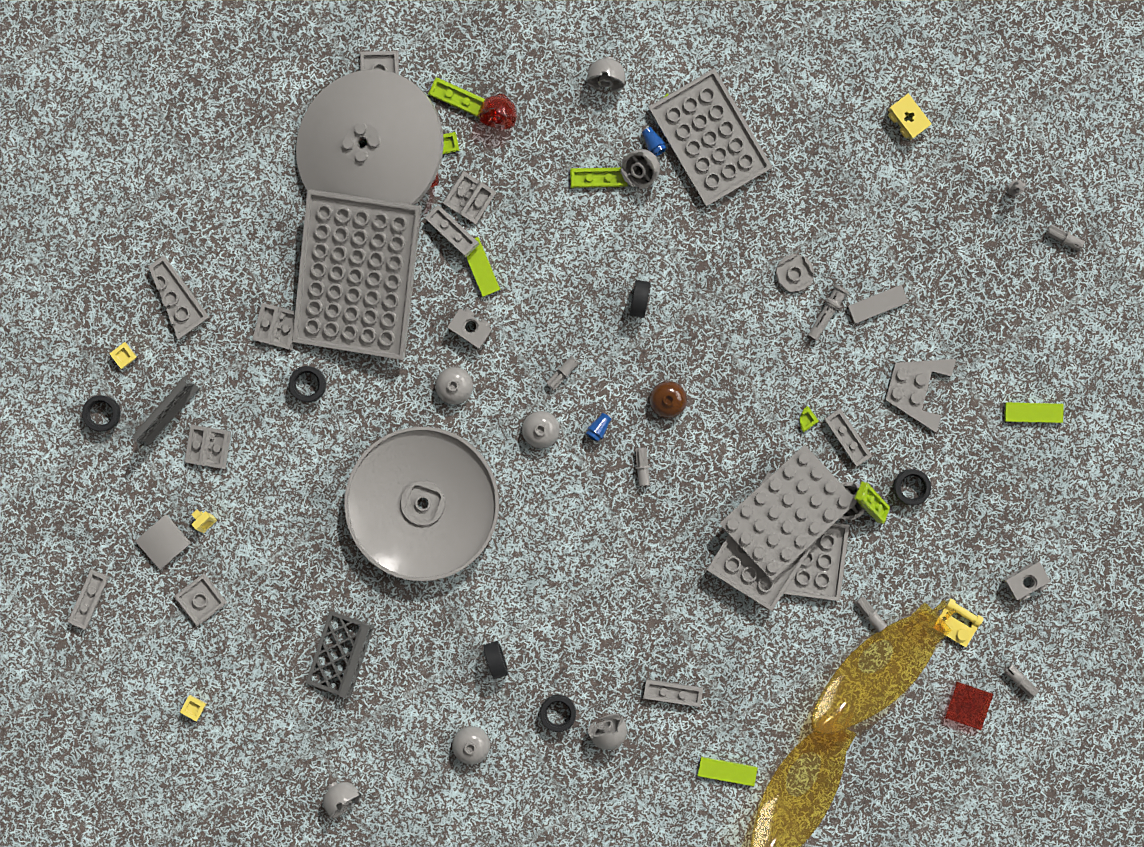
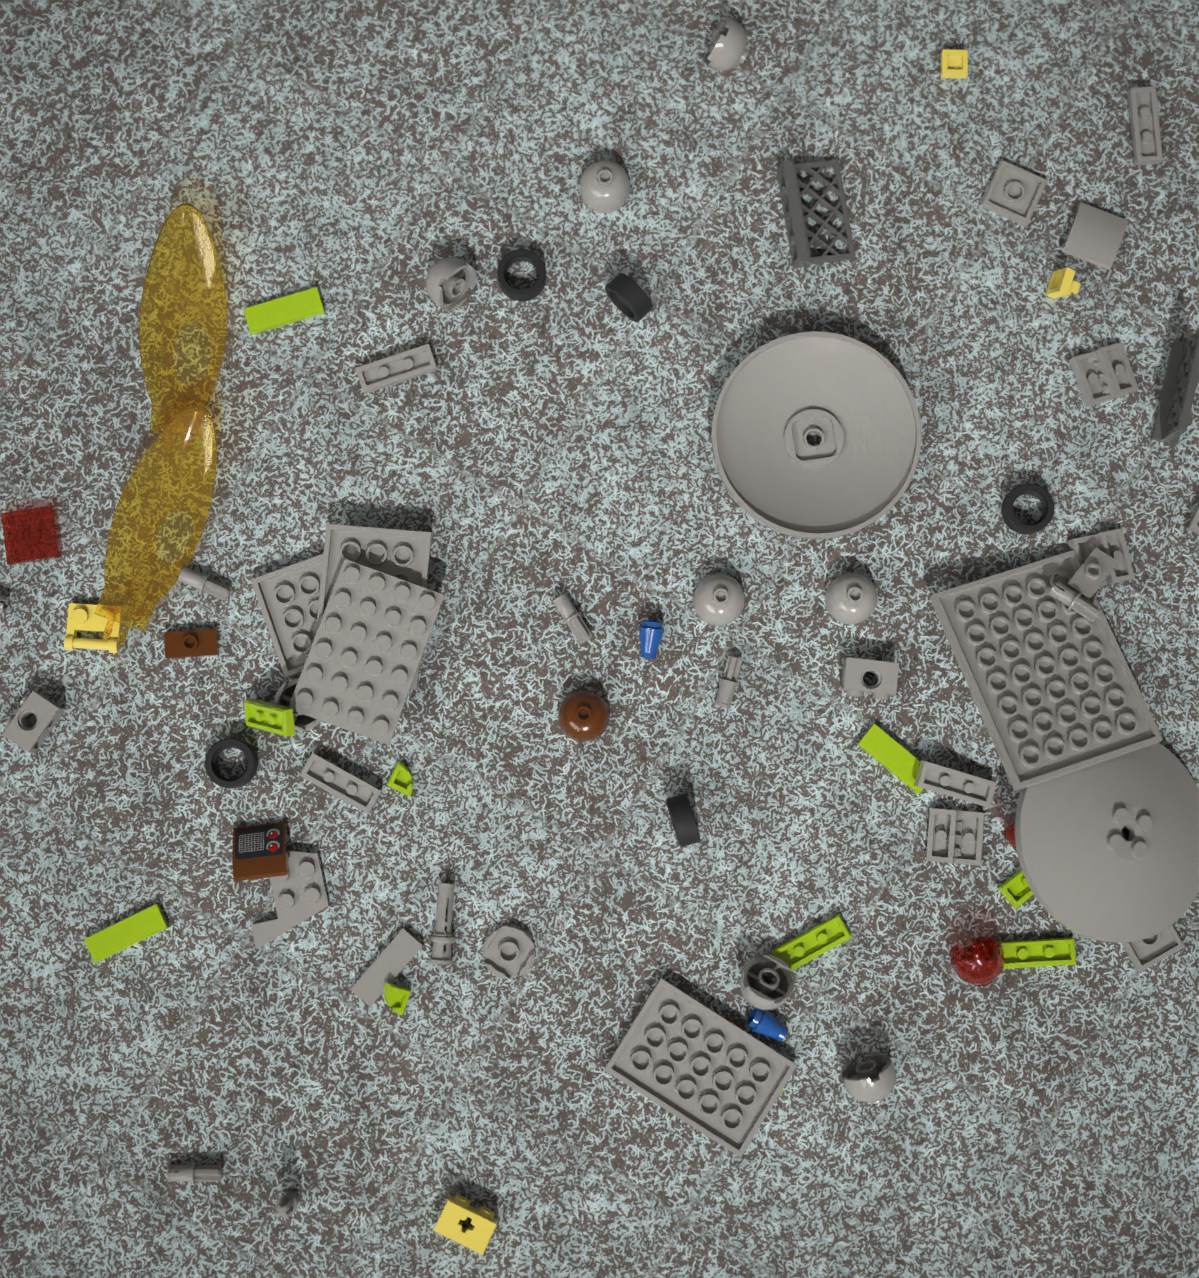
camera: 145 degrees right, 5 degrees down
(291, 319) = (1092, 573): none -> light grey plate
(313, 306) = (1075, 601): none -> light grey axle
(881, 282) = (396, 997): none -> lime tile
(899, 579) = (191, 643): none -> reddish brown plate
(921, 420) = (260, 851): none -> slope

